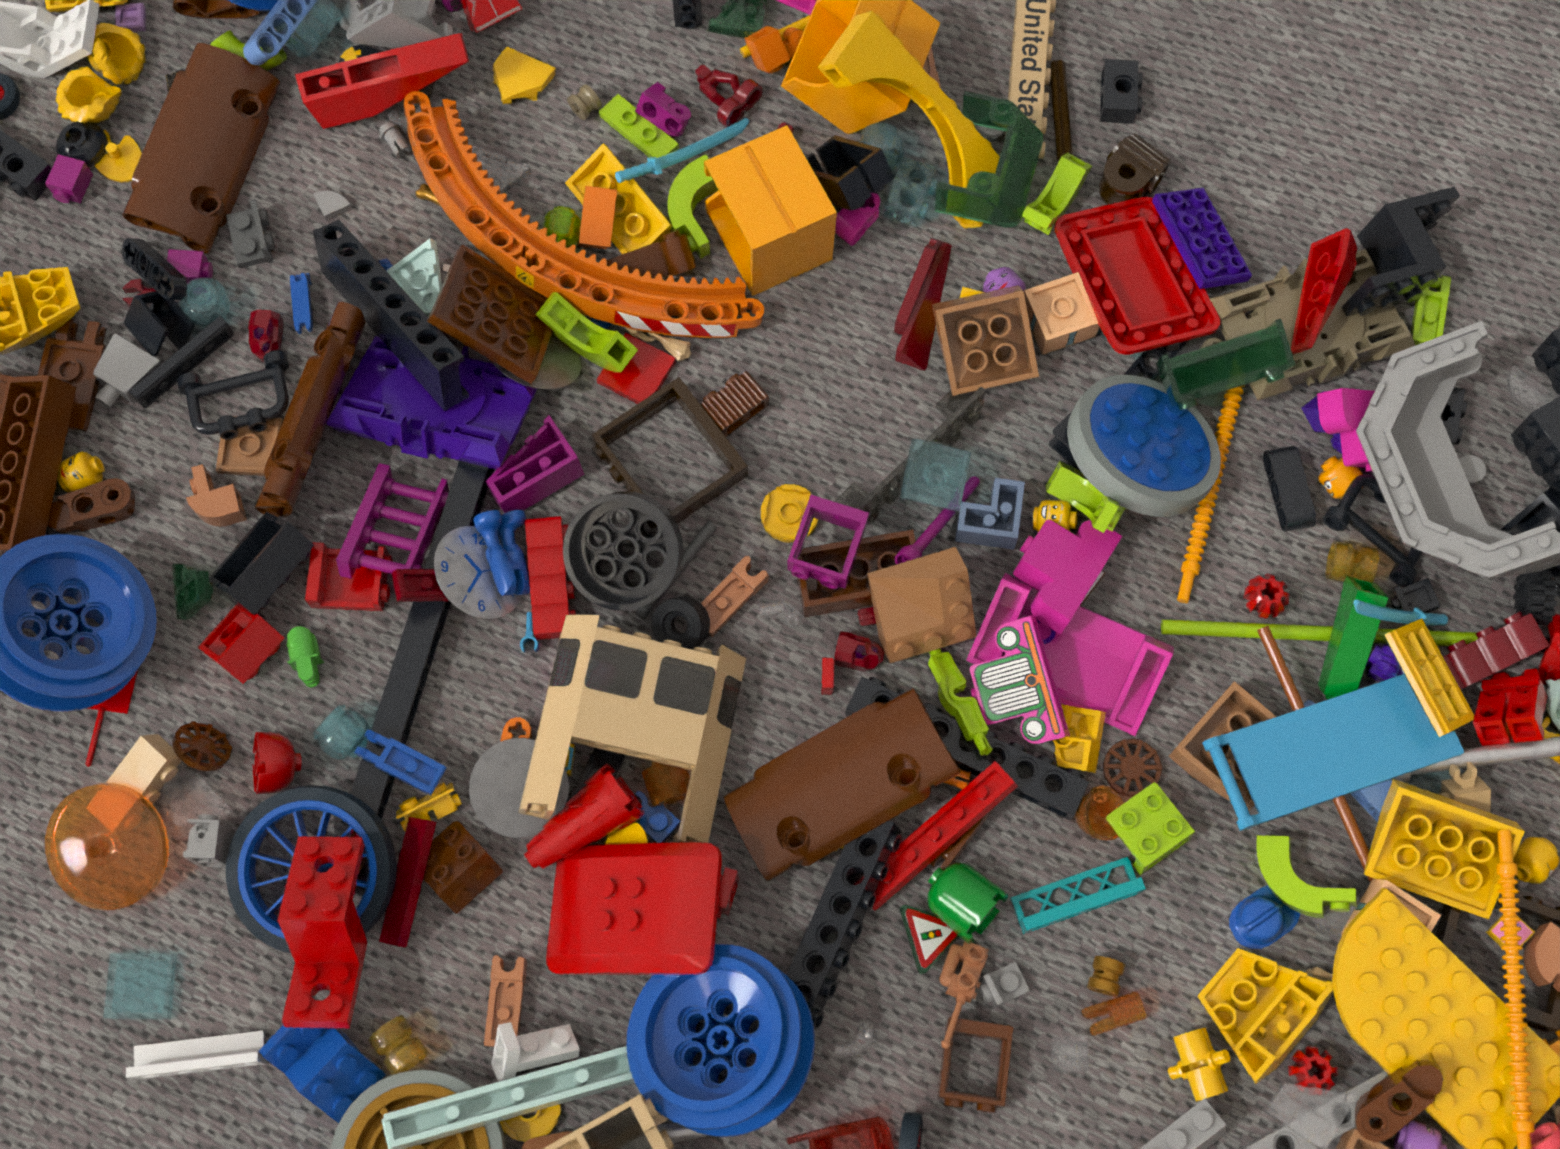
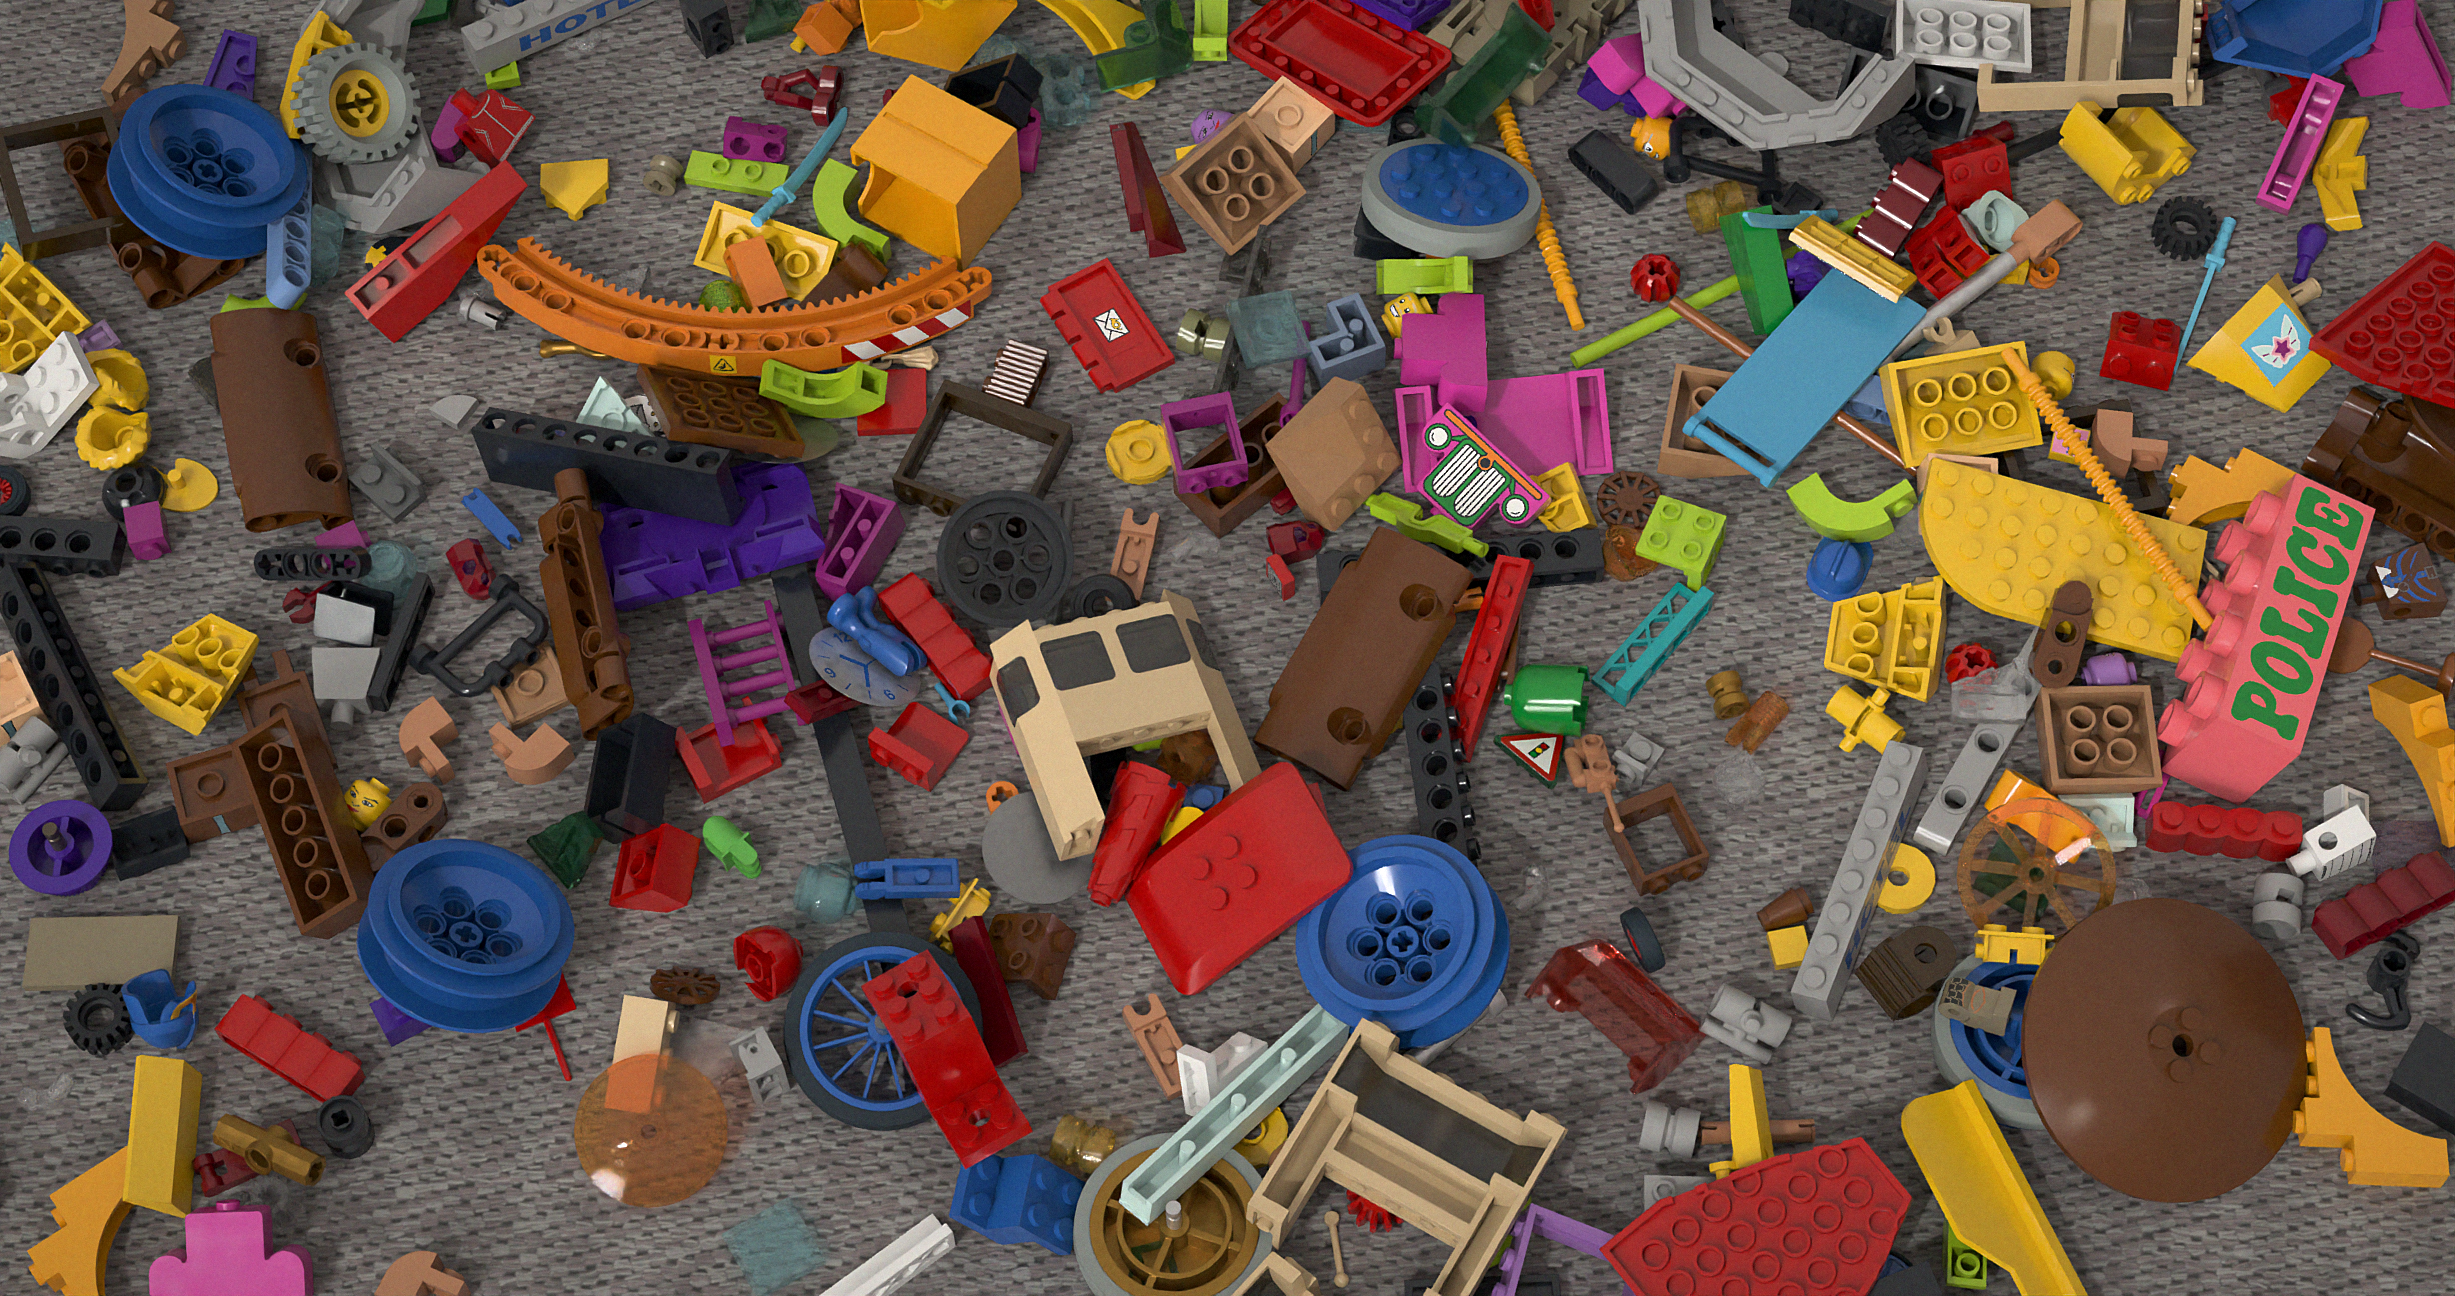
camera: 30 degrees left, 10 degrees down
(152, 441) = (423, 734): none -> nougat brick
(483, 655) = (918, 745): none -> red bracket
(830, 399) = (1106, 327): none -> red hinge
(886, 439) = (1191, 332): none -> olive wheel

